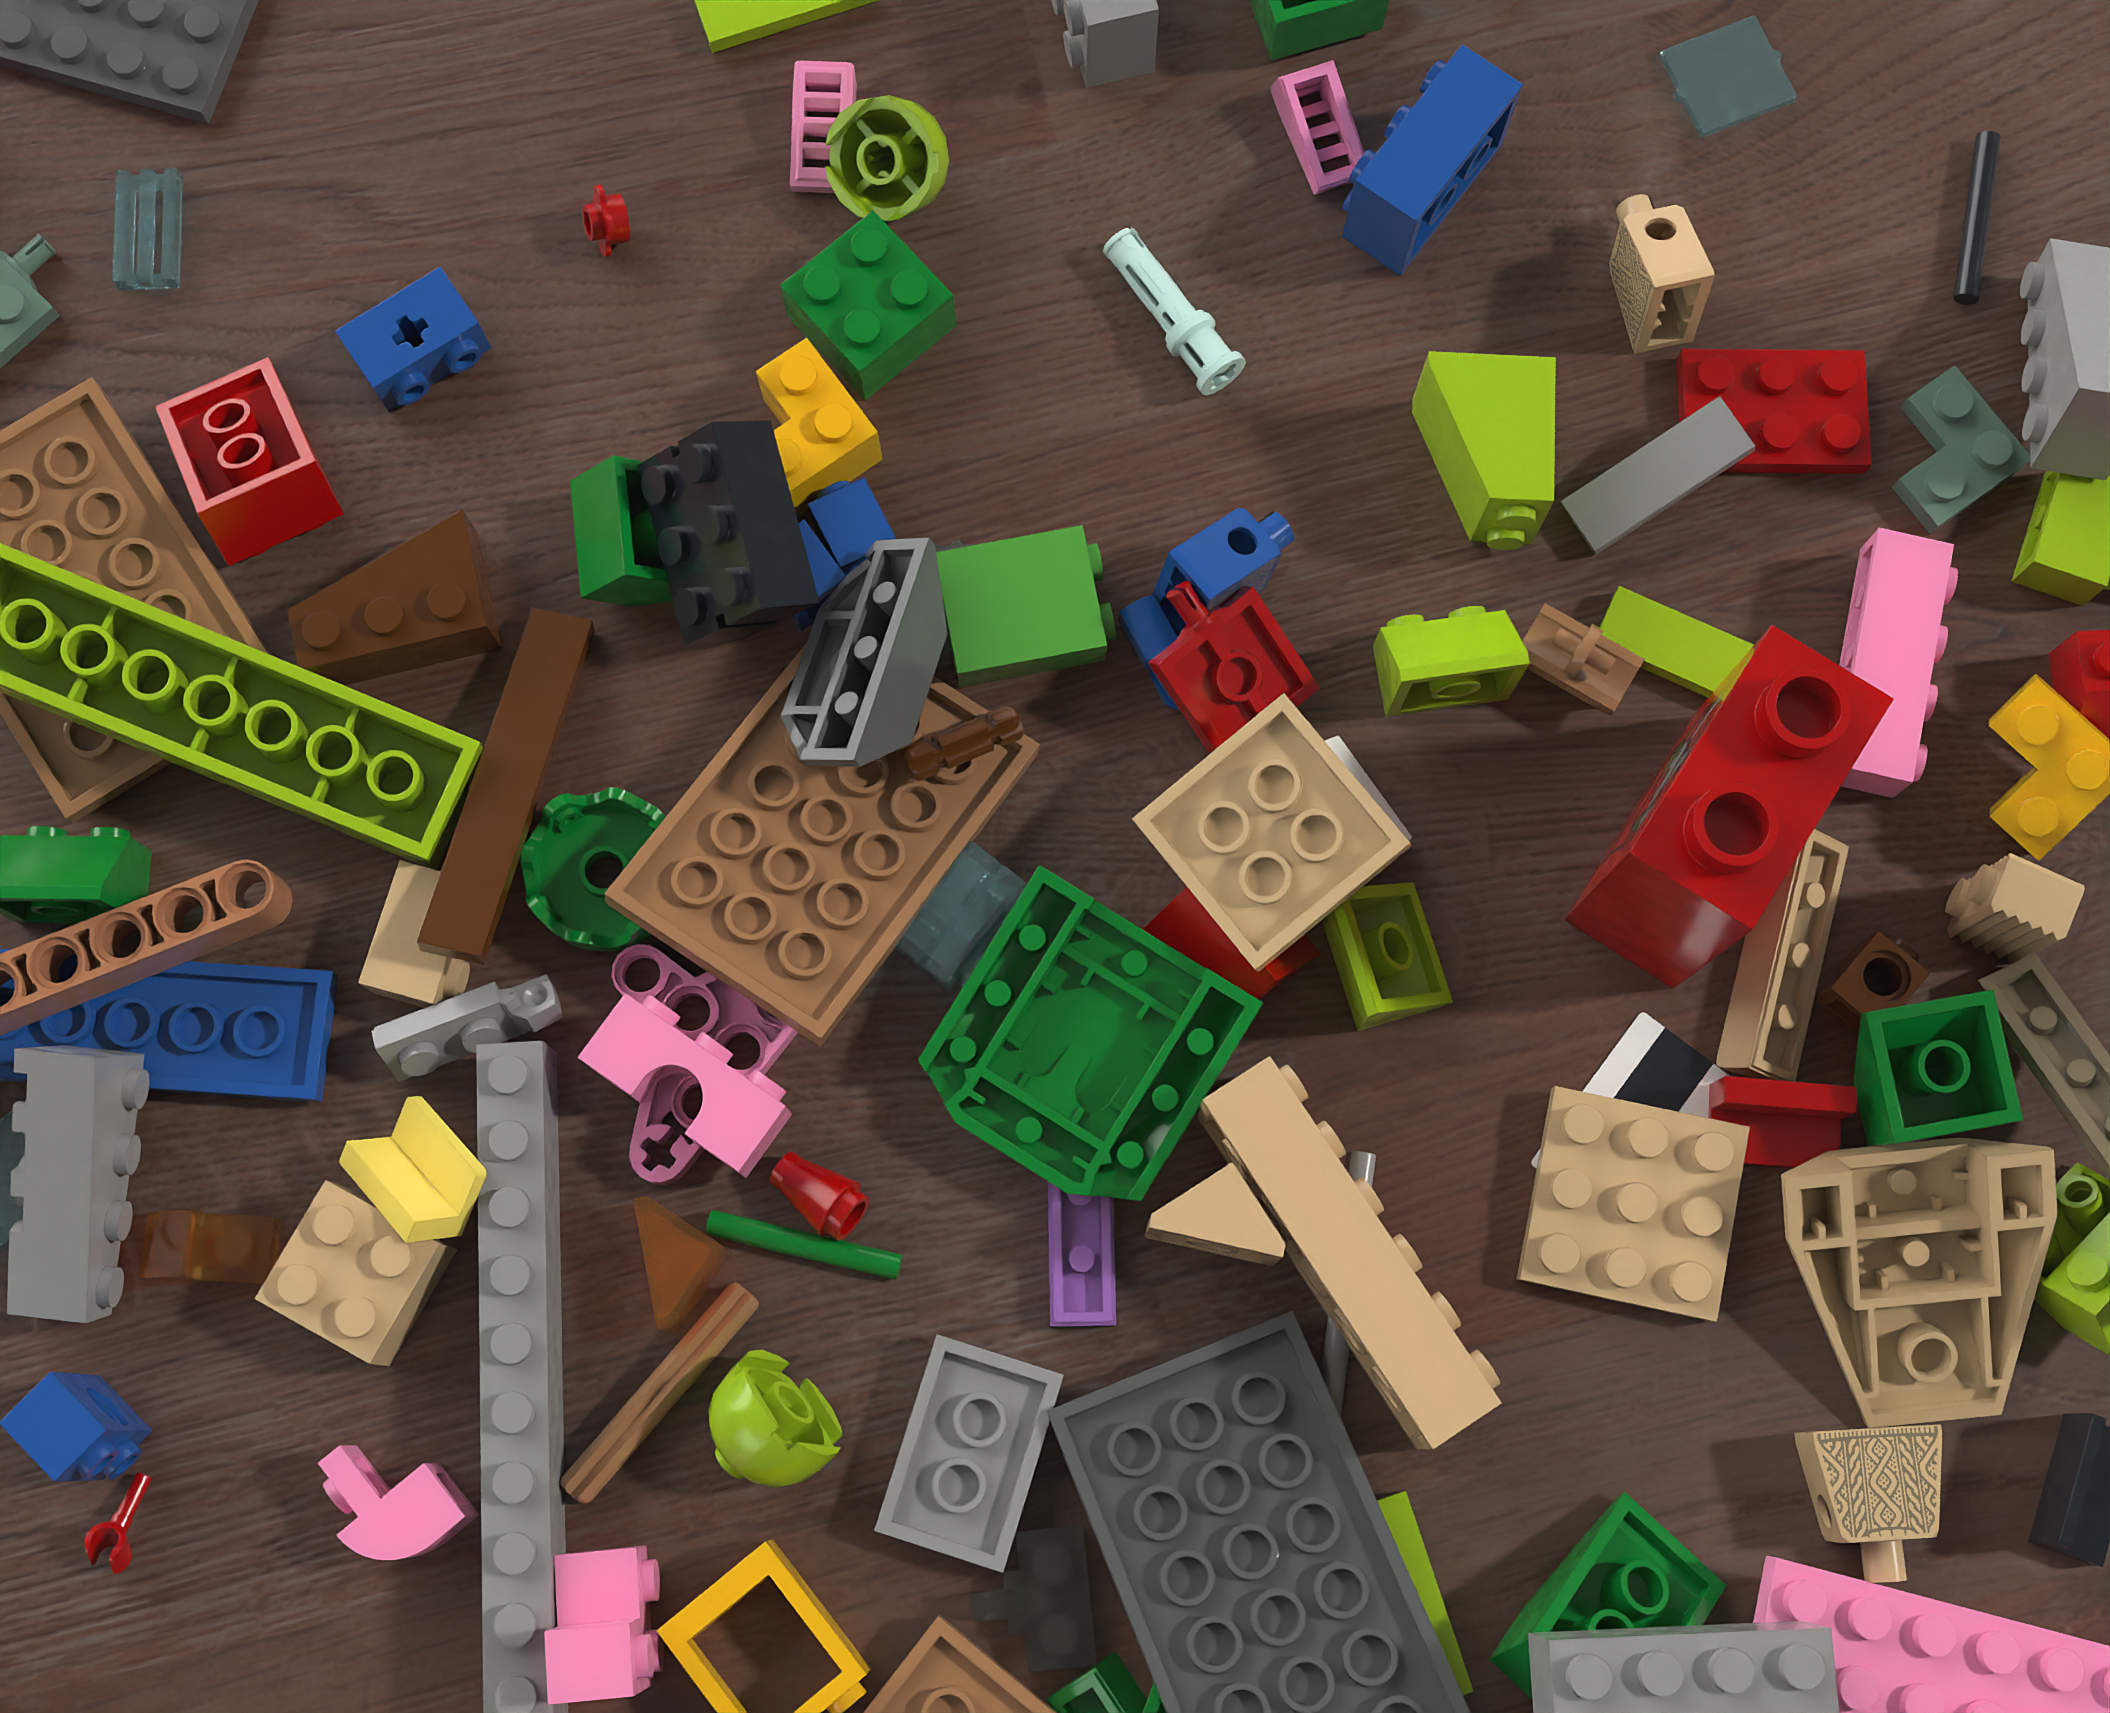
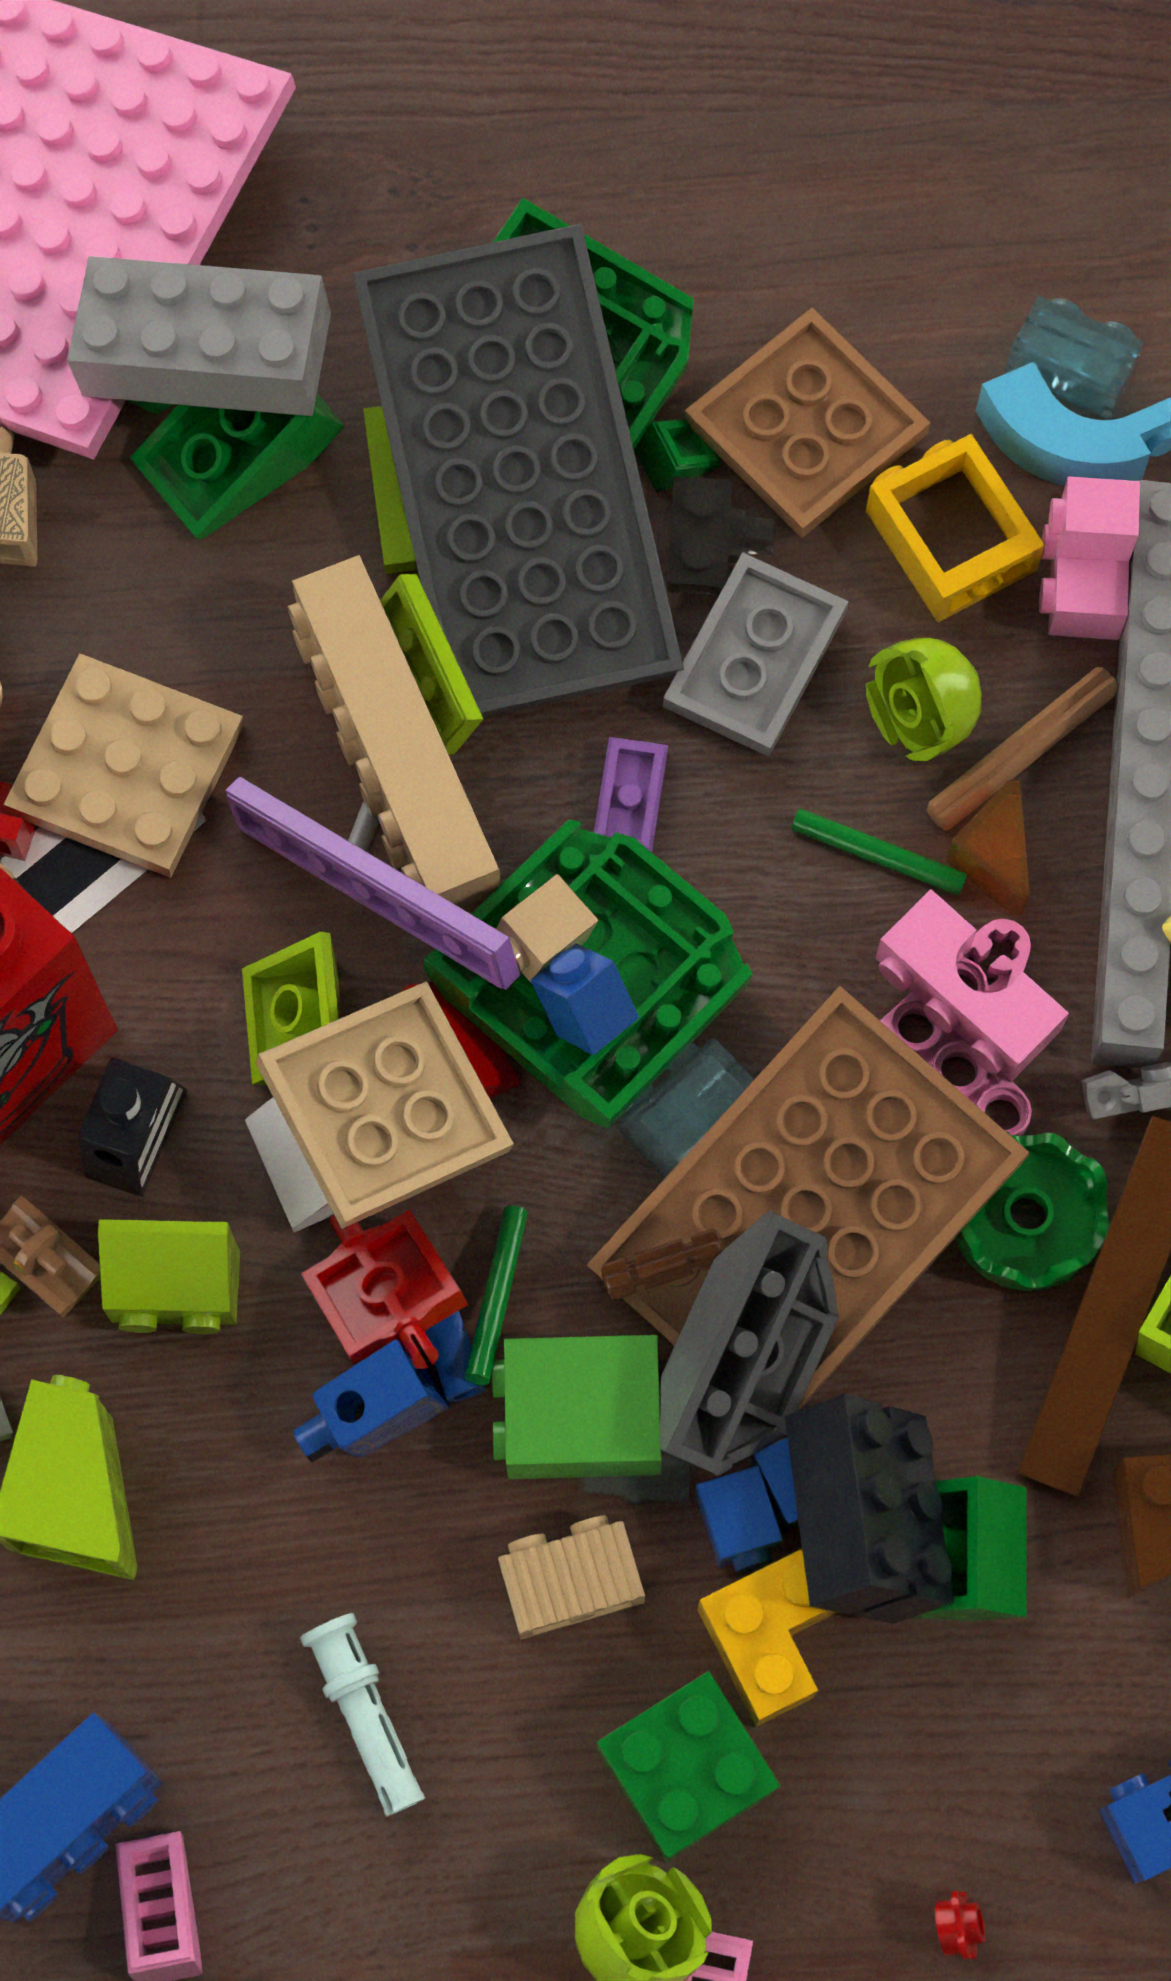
camera: 170 degrees left, 5 degrees down
(821, 1196) = (858, 885): red cone -> none
(1004, 452) = (570, 1576): none -> tan brick
(1086, 980) = (584, 998): none -> blue brick
(1123, 701) = (496, 1295): none -> green bar
(1144, 1045) = (546, 925): none -> tan brick
(1219, 1219) = (509, 789): tan slope -> none
(1332, 1367) = (431, 661): none -> lime tile
(1337, 1078) = (374, 883): none -> medium lavender tile
(1525, 805) = (130, 1120): none -> black torso

